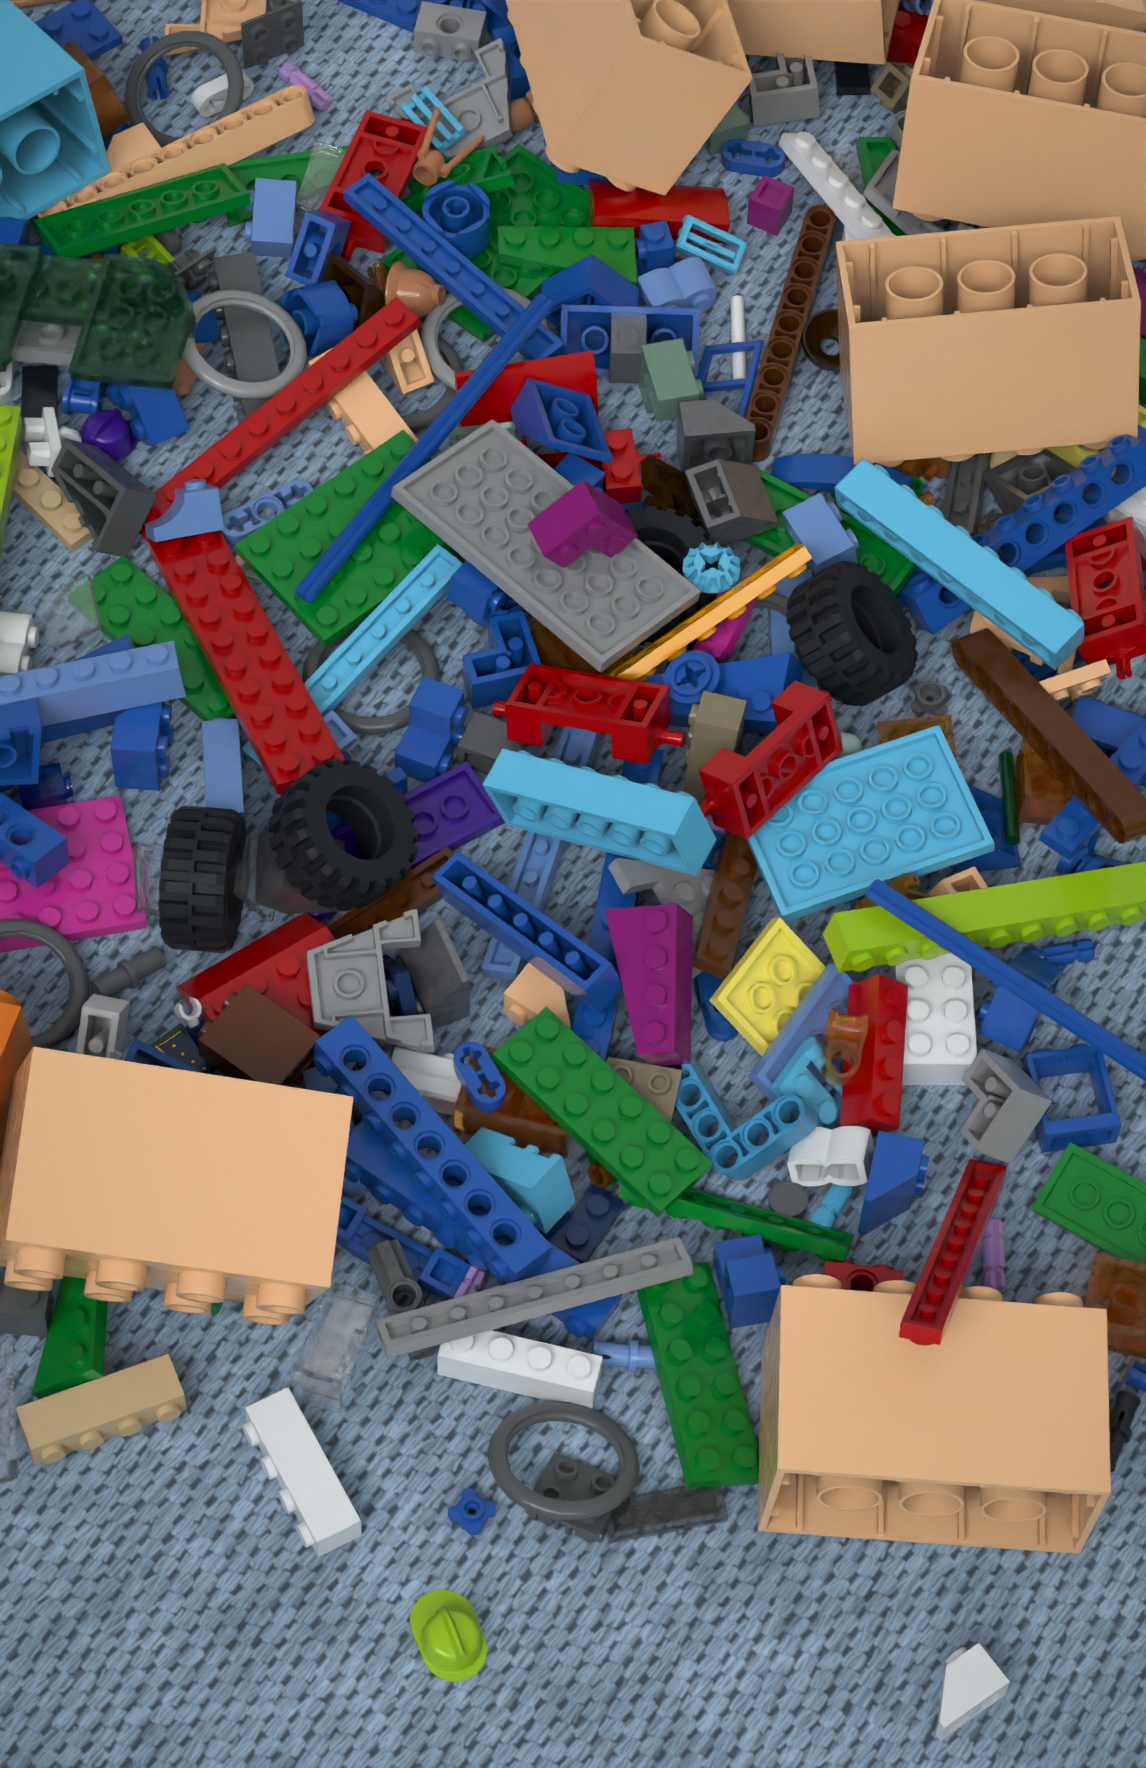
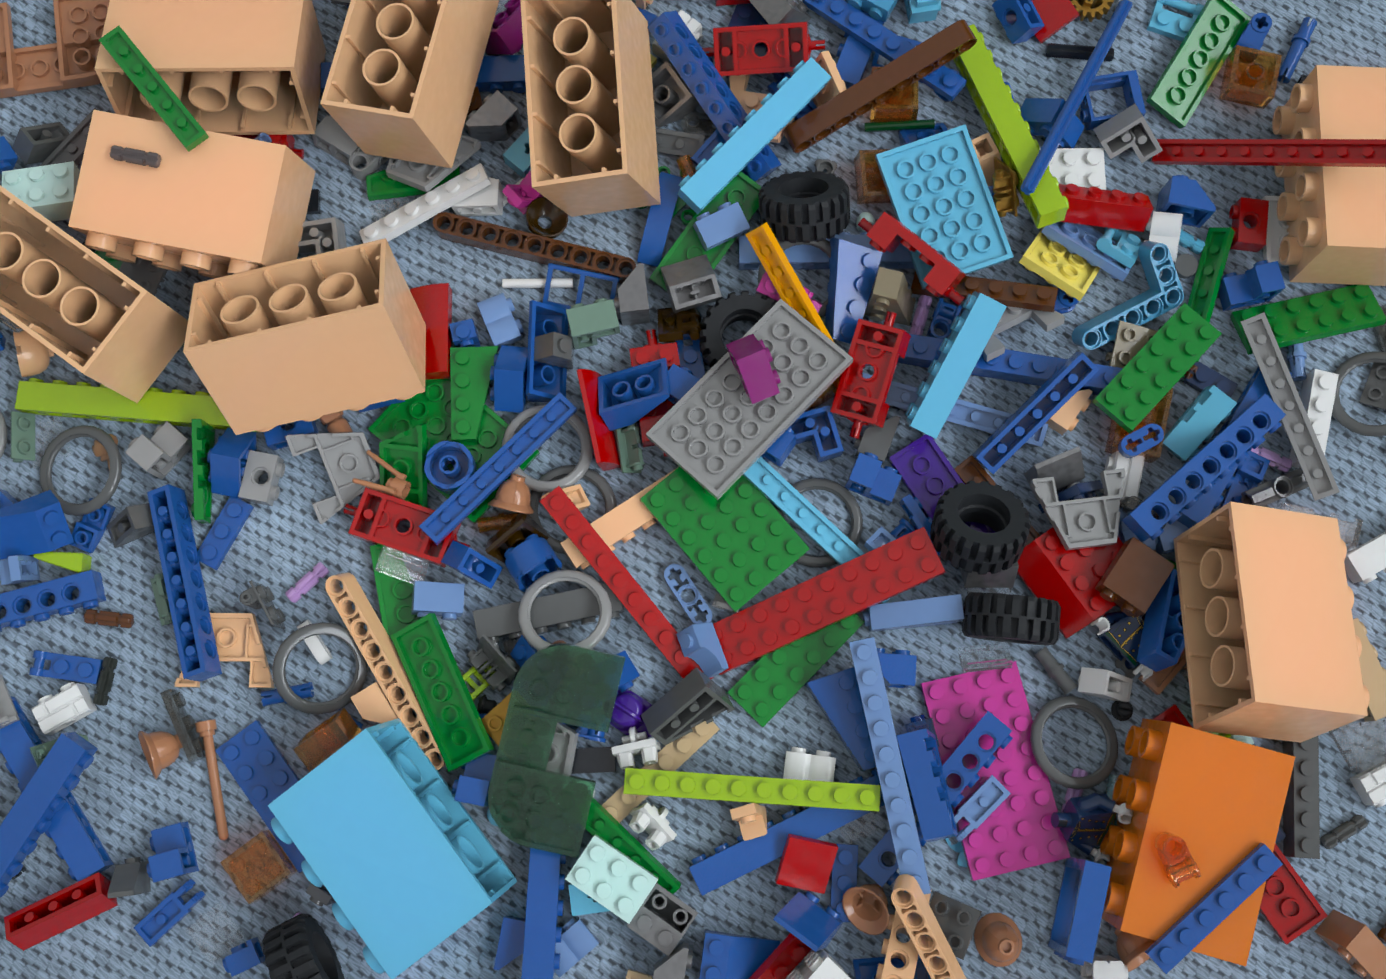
camera: 90 degrees left, 20 degrees up
(69, 613) = (778, 726): clear piece -> none
(418, 102) = (331, 499): medium azure tile -> none
(424, 447) = (662, 480): blue axle -> none
(656, 978) = (1065, 332): magenta wedge -> none
(677, 676) = (859, 310): blue gear -> none
(685, 234) = (459, 310): medium azure tile -> none
(711, 580) = (757, 303): medium azure gear -> none
(770, 205) = (427, 256): magenta panel -> none
(845, 1039) = (1111, 220): clear orange piece -> none
(893, 86) = (325, 166): dark tan brick -> none

